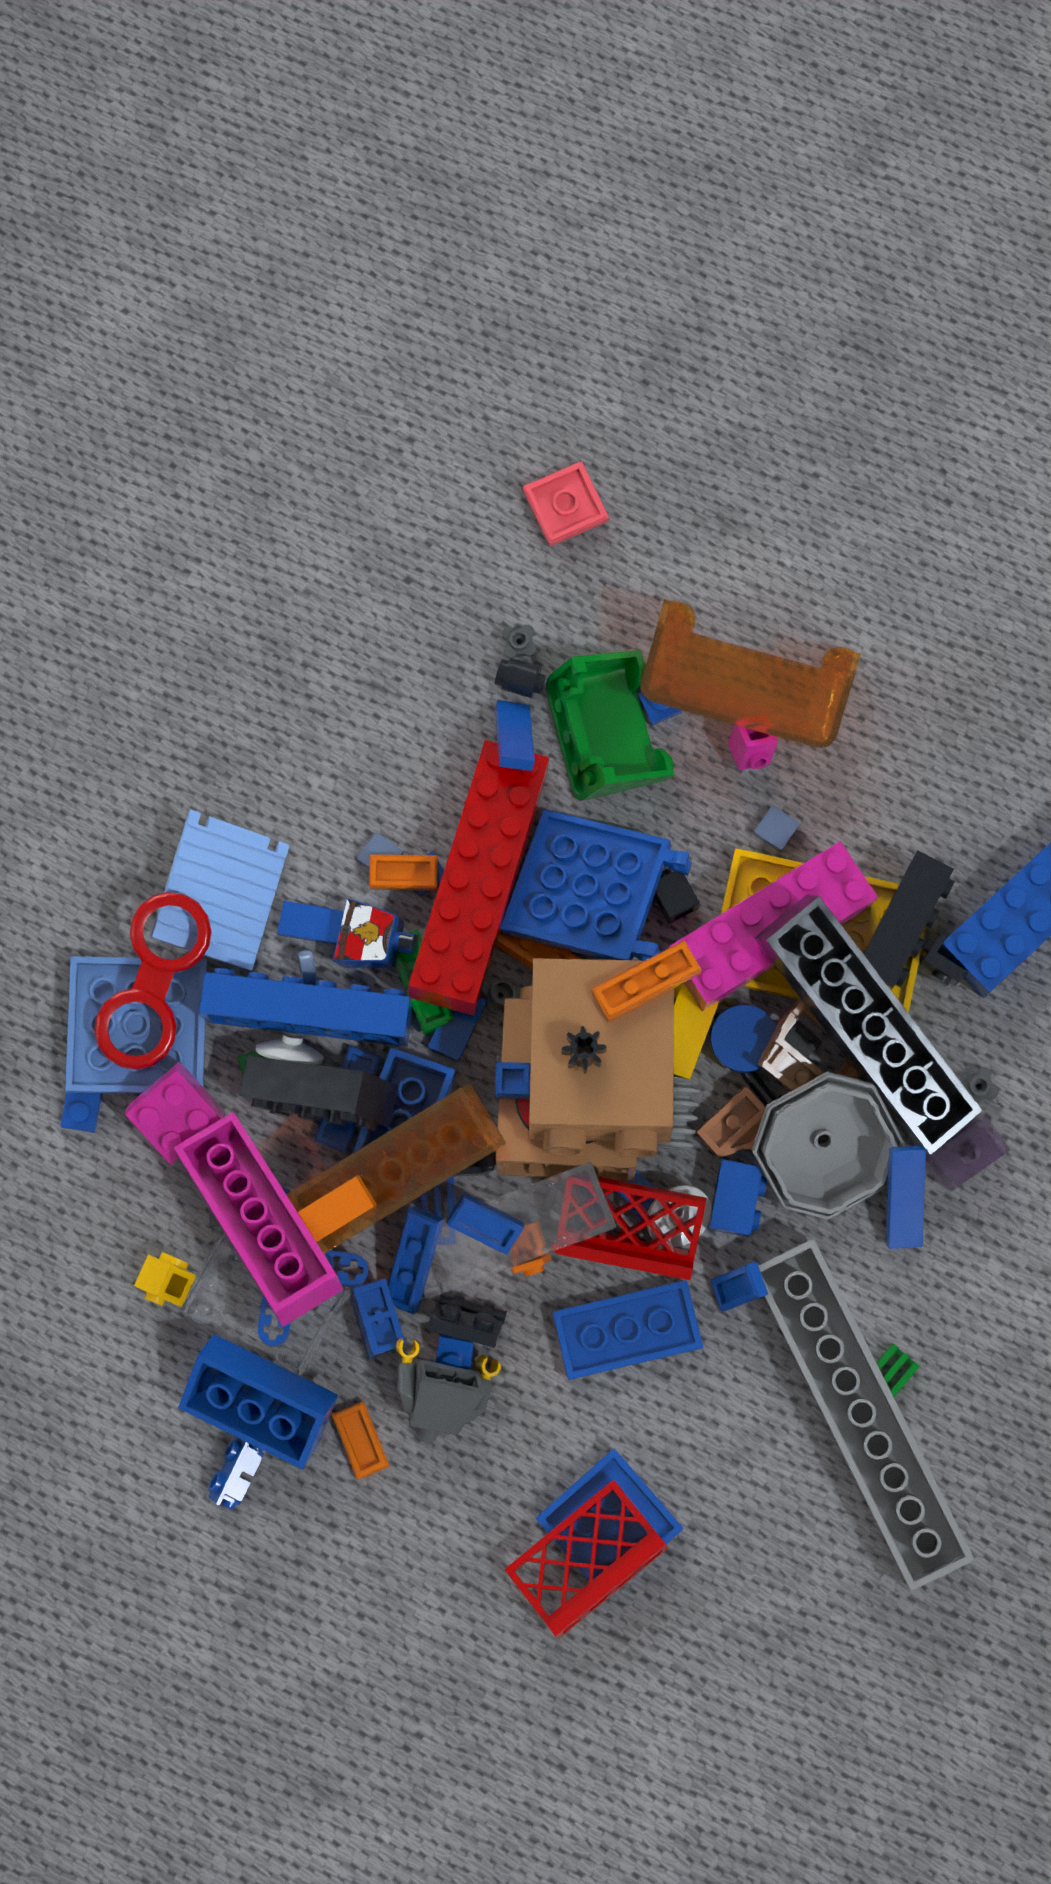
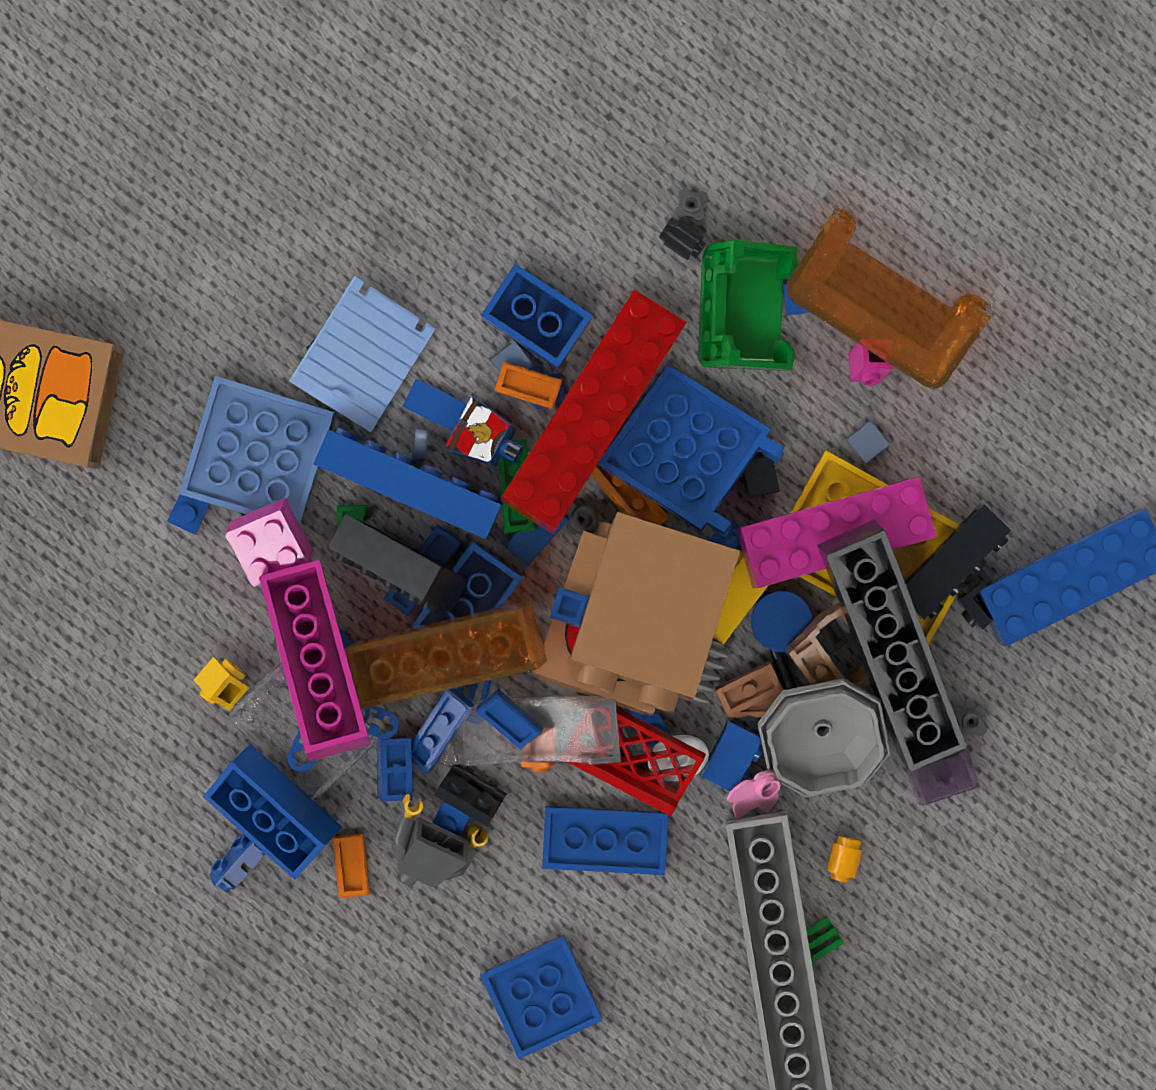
camera: 15 degrees right, 10 degrees up
(153, 980) = (281, 420): red bar -> none
(290, 1049) = (383, 517): white dish -> none
(337, 1208) = (384, 675): orange tile -> none
(391, 798) = (536, 316): none -> blue brick
(514, 735) = (661, 293): blue tile -> none
(565, 503) = (771, 88): coral plate -> none
(585, 1059) = (638, 601): black gear -> none
(603, 1585) = (520, 1049): red fence -> none
(646, 981) = (710, 562): orange tile -> none
(739, 1286) = (710, 834): blue tile -> none
(773, 1229) = (754, 793): none -> bright pink plate
(891, 1273) = (844, 859): none -> light orange brick
(905, 1197) = (877, 800): blue tile -> none

